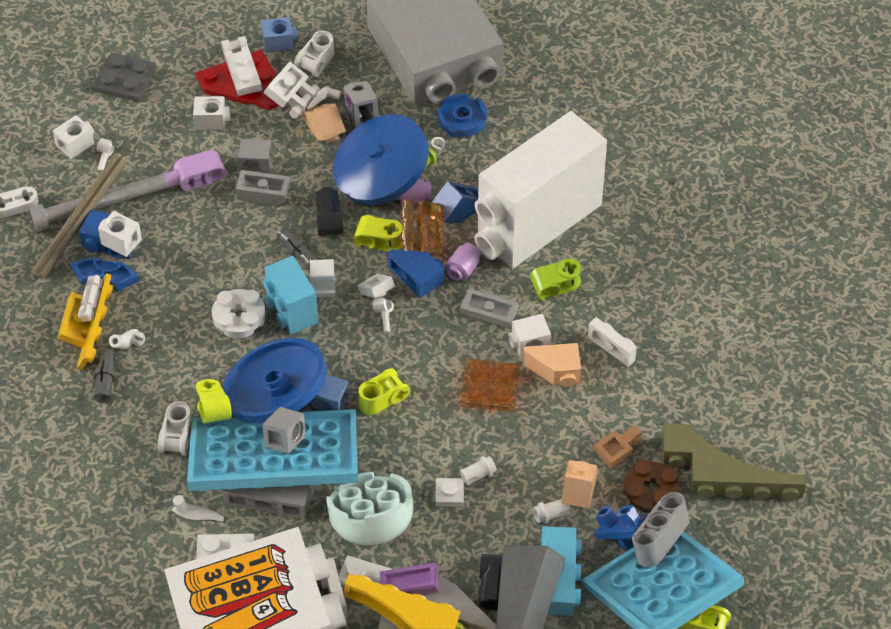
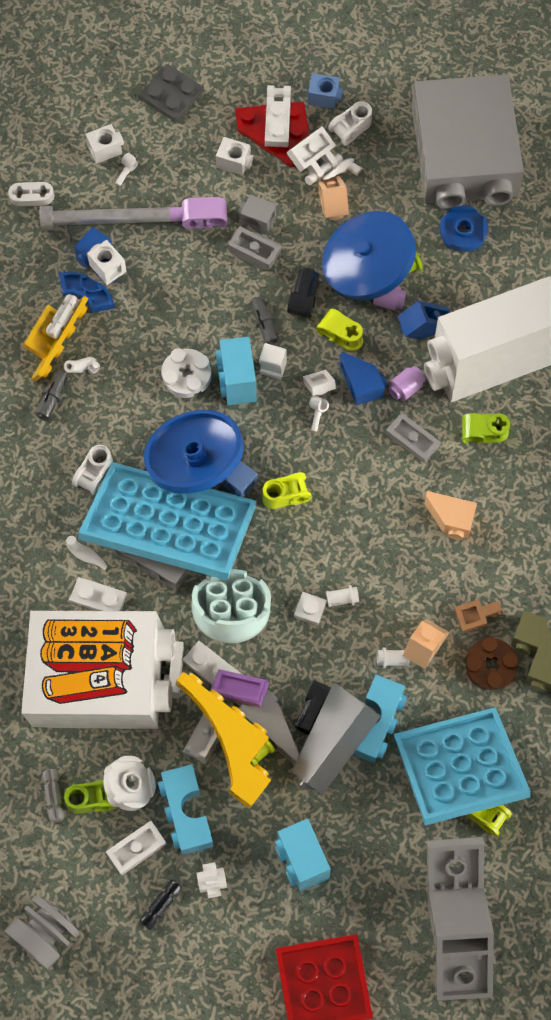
camera: 20 degrees right, 15 degrees up
(79, 216) = (81, 228): dark tan axle -> none
(213, 402) = (132, 454): neon yellow piece -> none
(284, 430) = (181, 507): light grey brick -> none
(360, 98) = (371, 185): light grey torso -> none
(429, 227) = (387, 340): clear orange plate -> none
(435, 142) = (422, 250): white hand -> none
(490, 385) = (385, 515): clear orange plate -> none
(529, 332) = (439, 477): white brick -> none
(612, 342) = (508, 503): white plate -> none
(619, 527) = (446, 696): blue hips -> none
(660, 529) = (479, 714): light grey beam -> none

